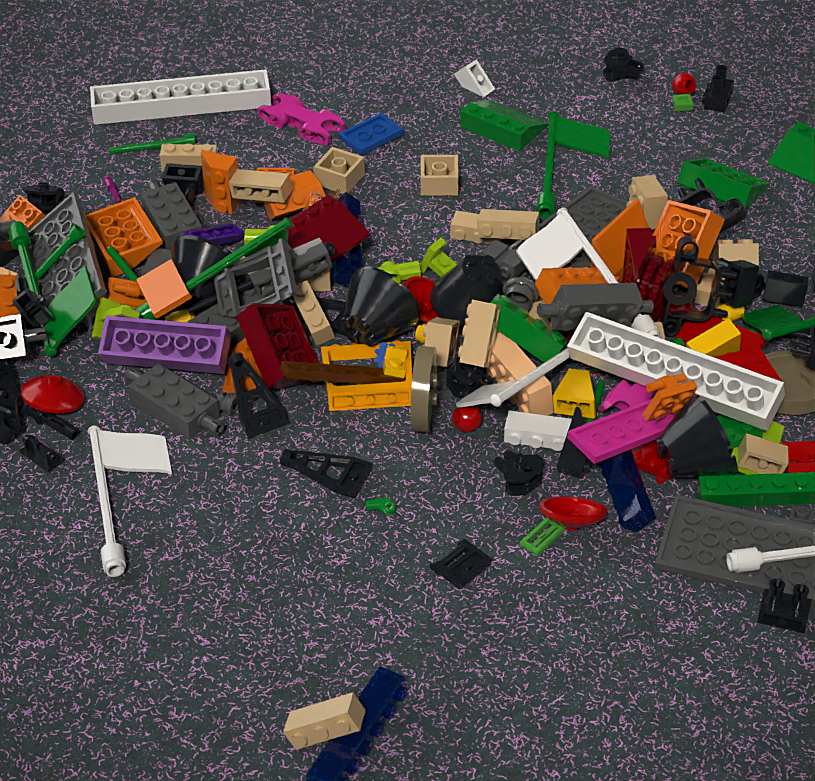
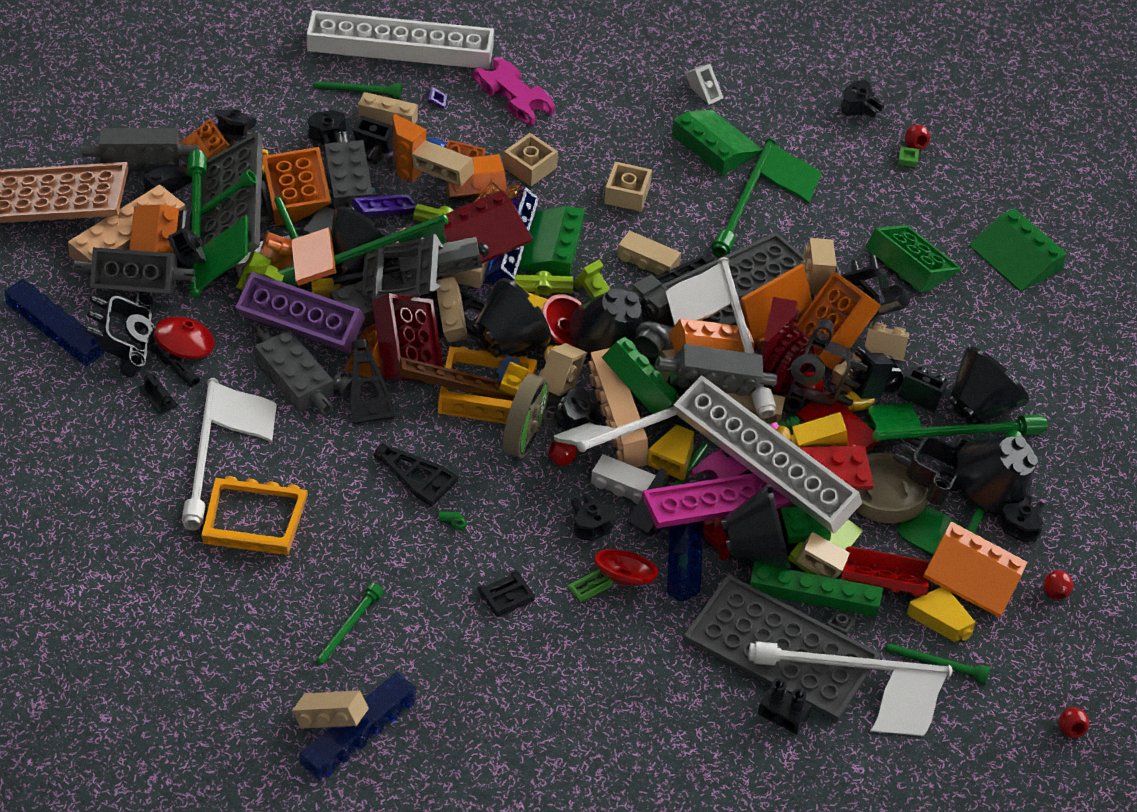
camera: 10 degrees right, 5 degrees up
(112, 188) = (303, 126): magenta piece -> none
(133, 181) = (325, 128): none -> black hinge
(180, 572) = (249, 541): none -> light orange windscreen
(229, 138) = (434, 96): none -> dark purple slope
(325, 595) = (372, 593): none -> green piece
(371, 134) = (578, 123): blue plate -> none
(389, 234) = (554, 242): none -> green slope
(479, 333) = (595, 372): tan brick -> none
(507, 224) = (671, 259): tan brick -> none
(670, 397) = (749, 480): orange plate -> none
(718, 91) = (949, 153): black brick -> none

